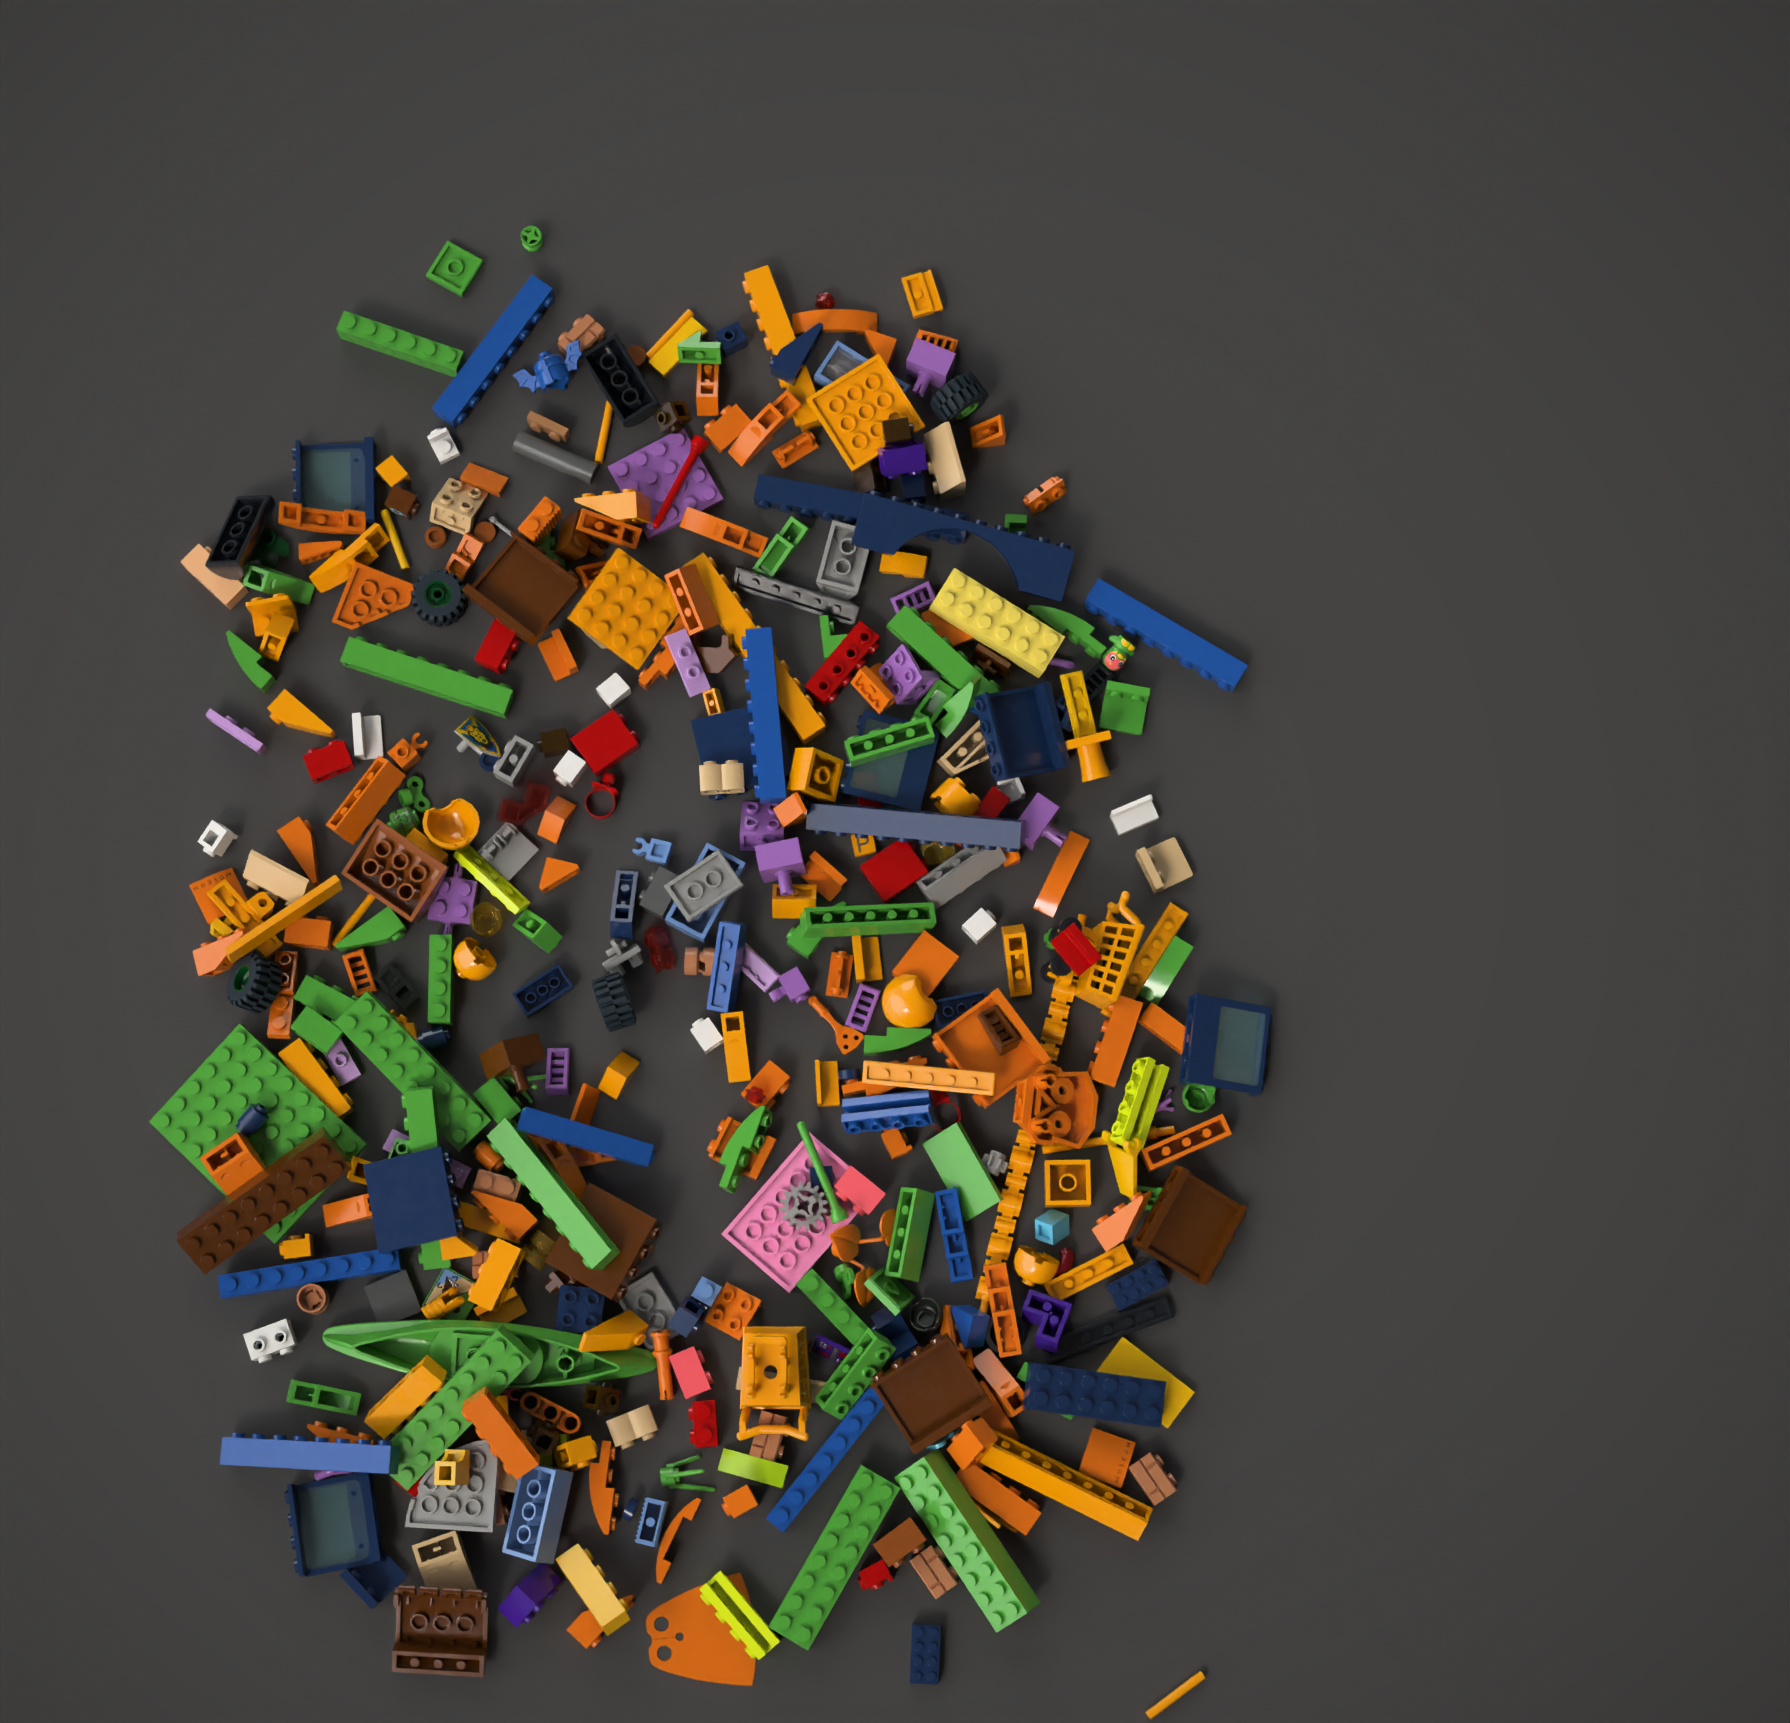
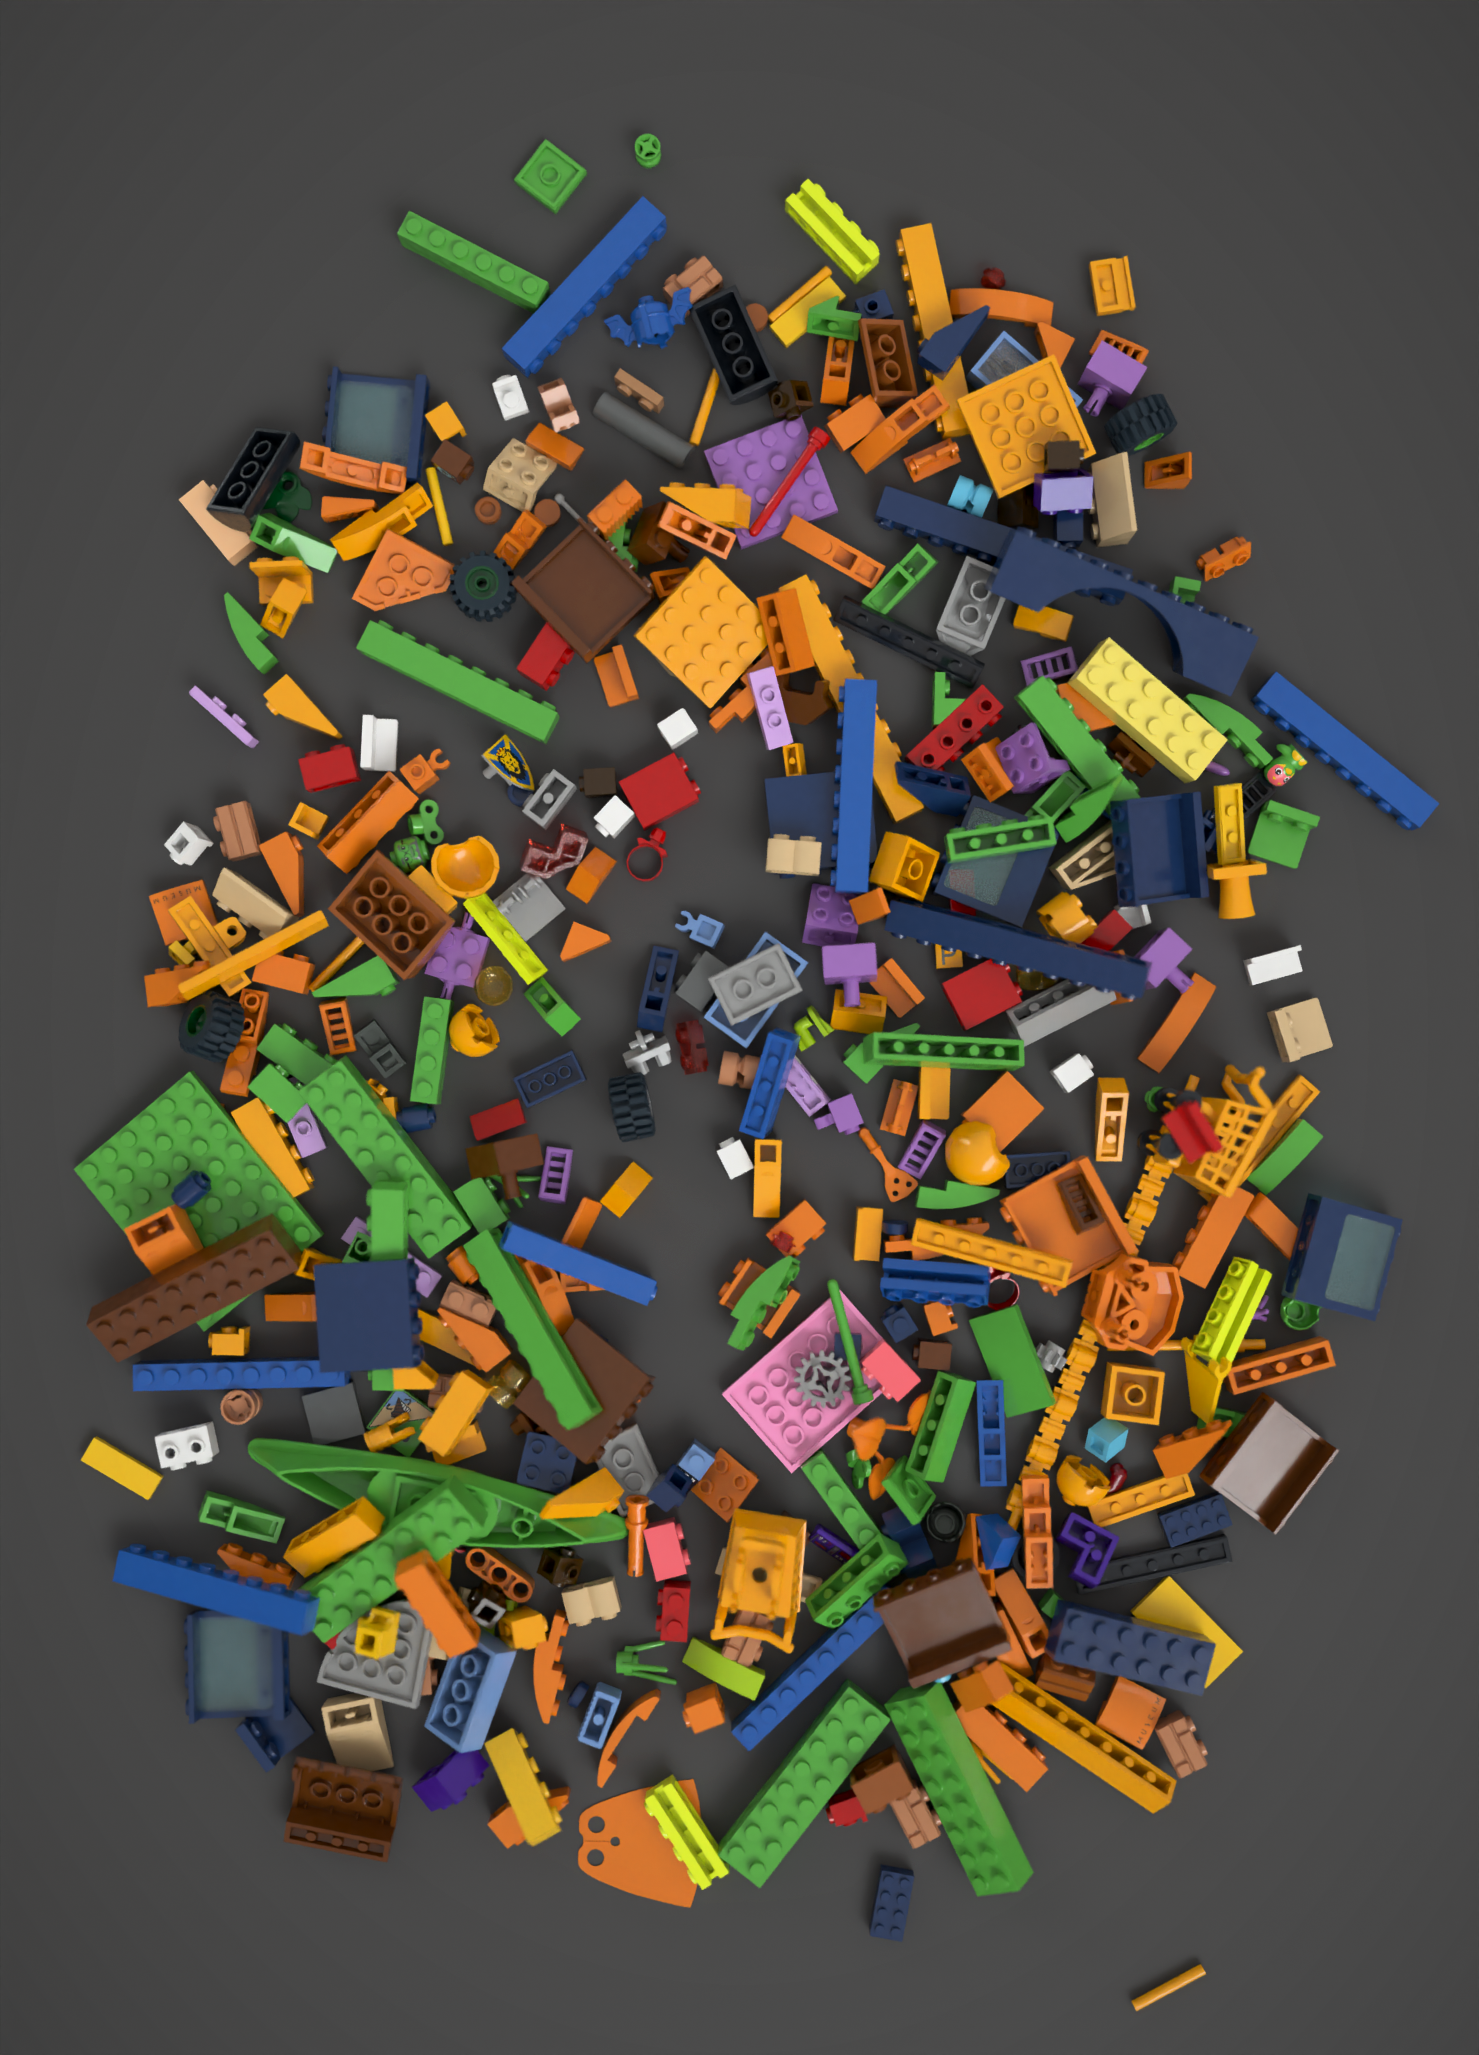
camera: 10 degrees right, 10 degrees up
(216, 1370) = (122, 1468): none -> yellow tile
(258, 823) = (238, 831): none -> nougat brick
(316, 806) = (308, 821): none -> light orange panel
(483, 446) = (558, 405): none -> nougat brick
(505, 1029) = (497, 1119): none -> red slope
(689, 281) = (832, 231): none -> neon yellow brick
(747, 376) = (888, 361): none -> dark orange slope
(752, 928) = (801, 1026): none -> lime piece
(829, 474) = (970, 497): none -> medium azure wheel
(833, 709) = (936, 789): none -> dark blue slope
(862, 1152) = (898, 1322): none -> dark blue brick
(894, 1175) = (932, 1354): none -> reddish brown brick
(1045, 1431) = (1064, 1678): none -> dark orange brick

